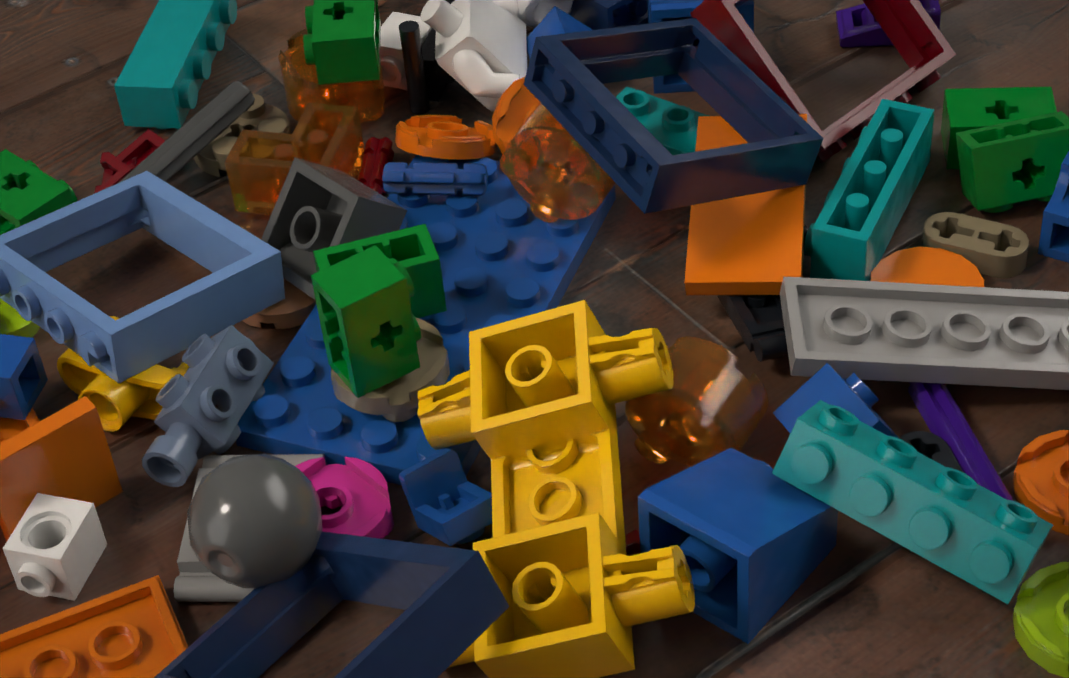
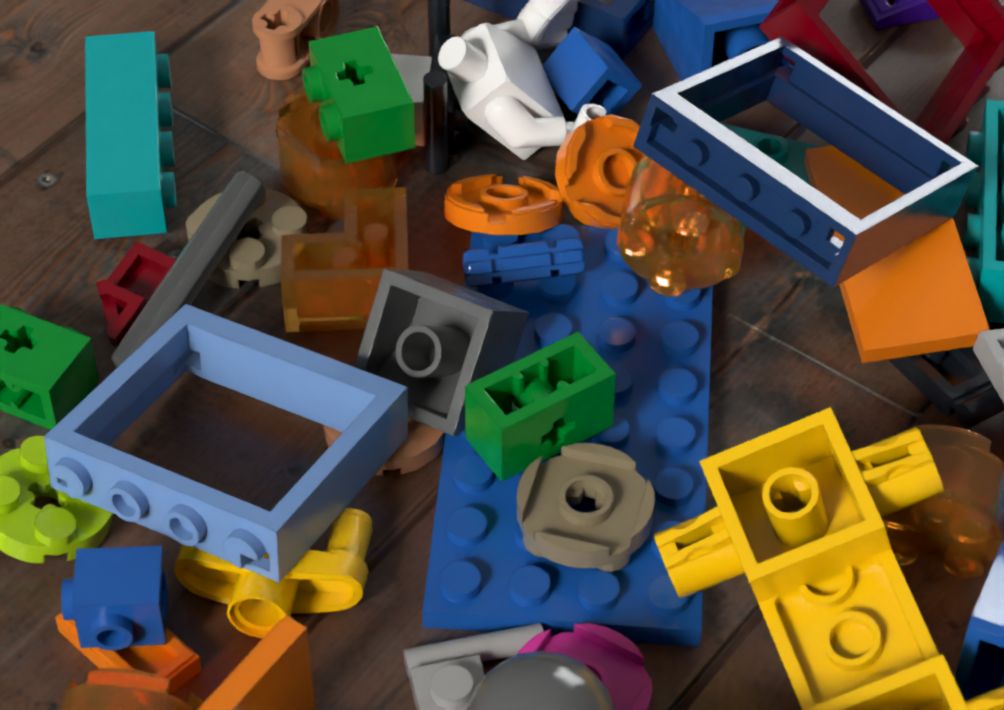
camera: 20 degrees left, 5 degrees up
(221, 373) = (388, 588): sand blue brick -> none
(367, 320) = (578, 466): green brick -> none
(377, 154) = (428, 246): dark red axle -> none
(444, 499) = (713, 659): blue bracket -> none

